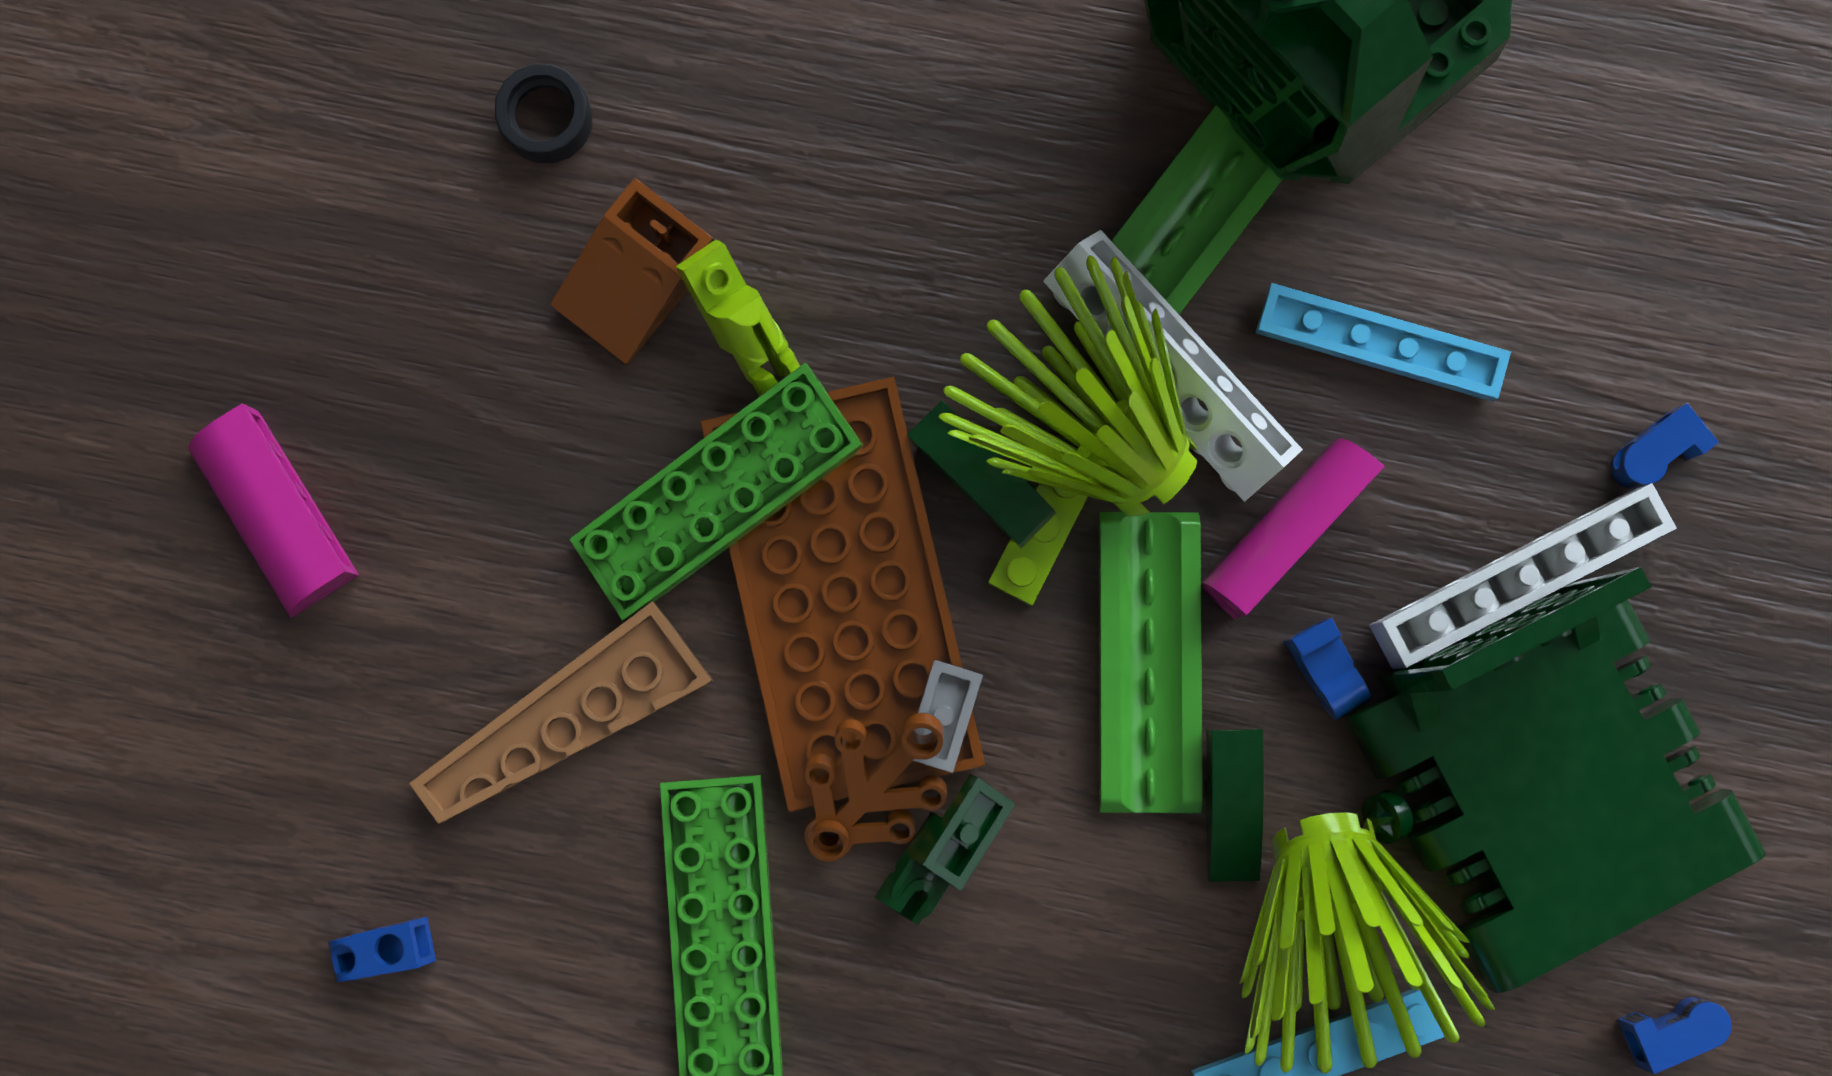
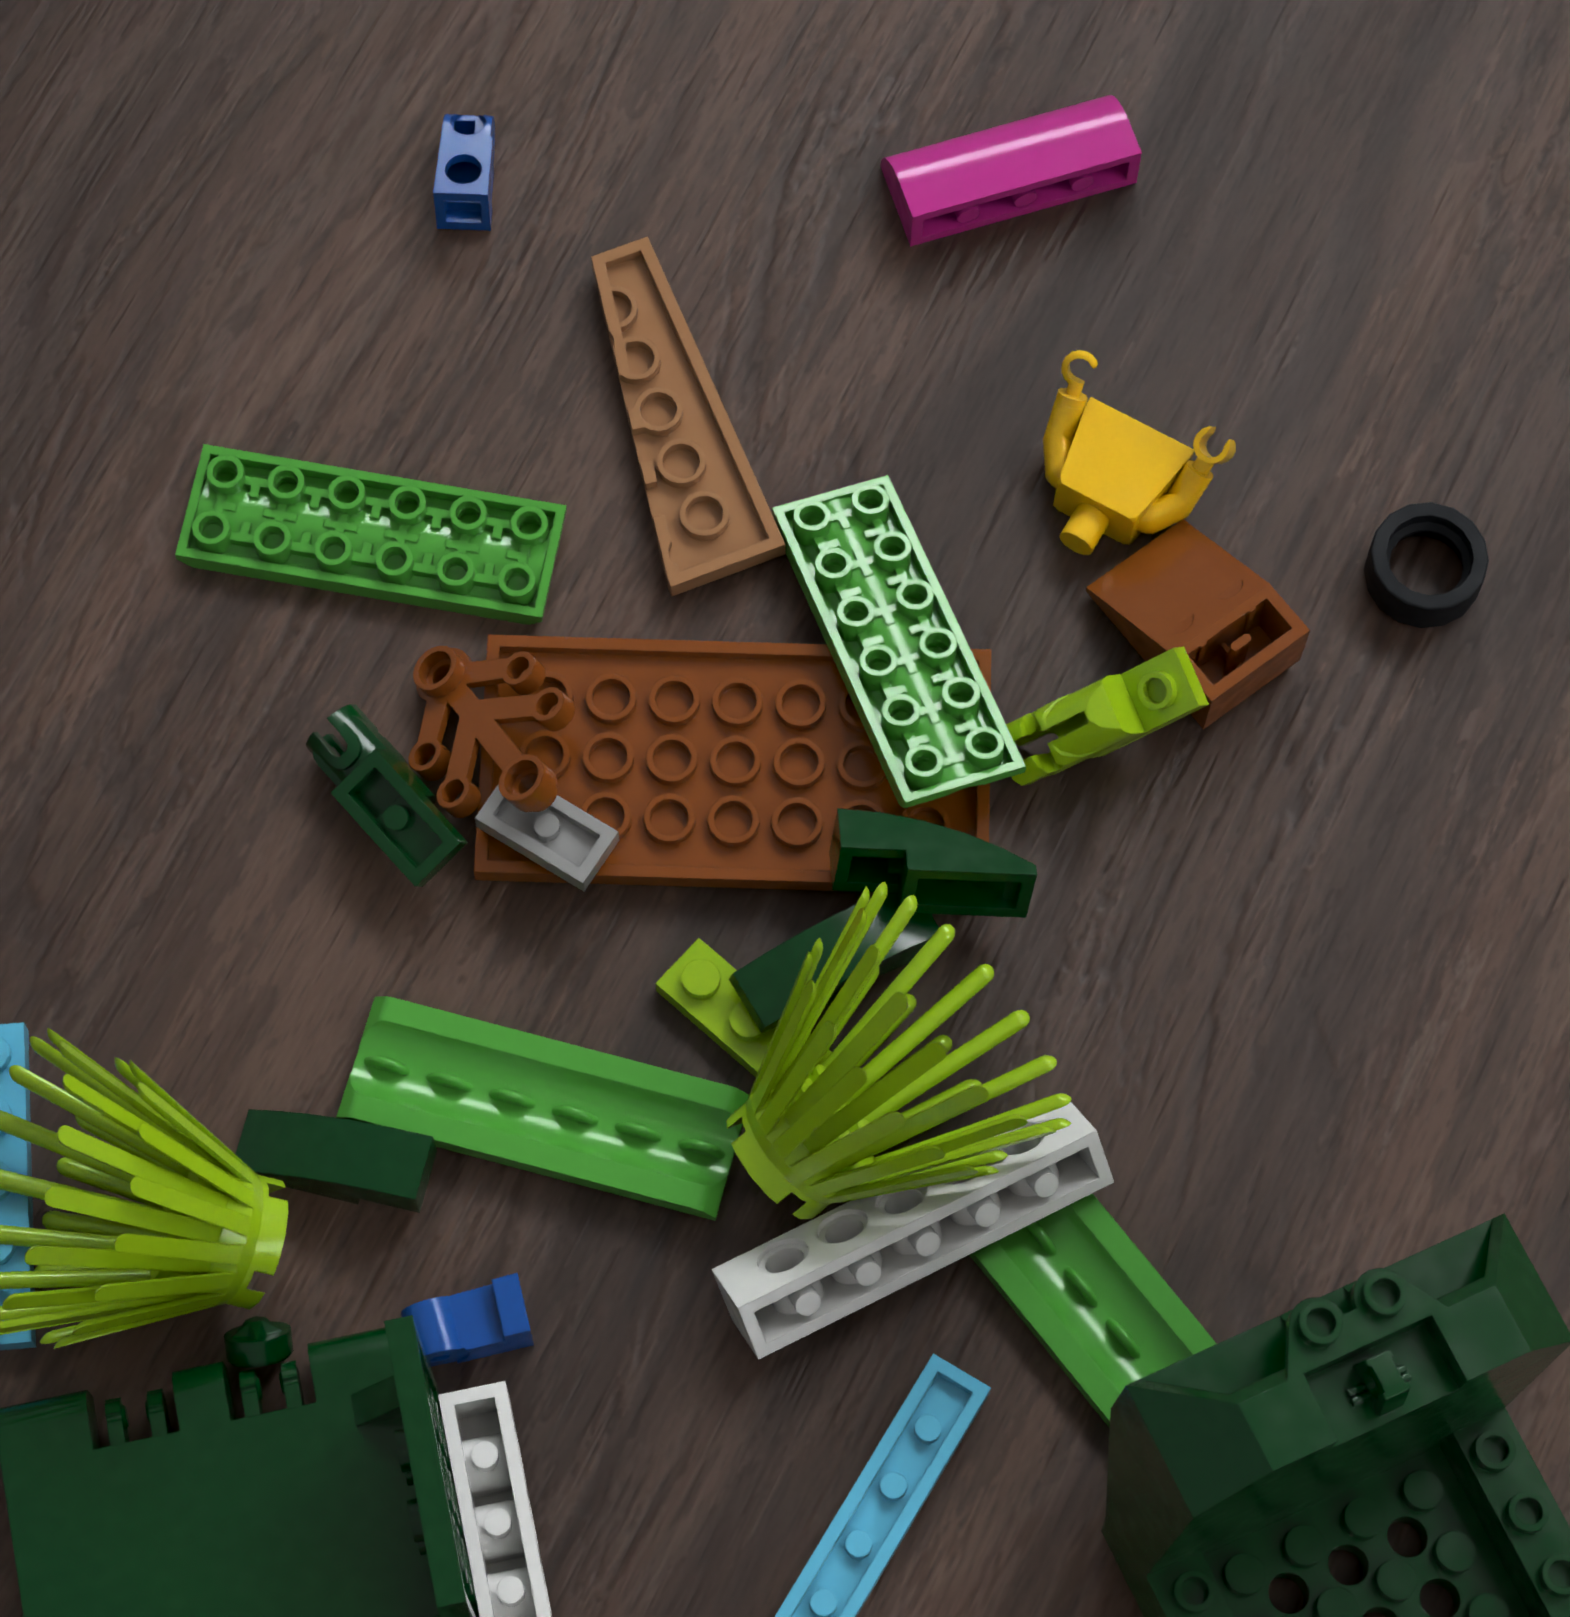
camera: 100 degrees right, 15 degrees down
(524, 360) = (1117, 471): none -> yellow torso
(900, 421) = (935, 863): none -> dark green slope
(1290, 527) = (661, 1319): dark pink brick -> none

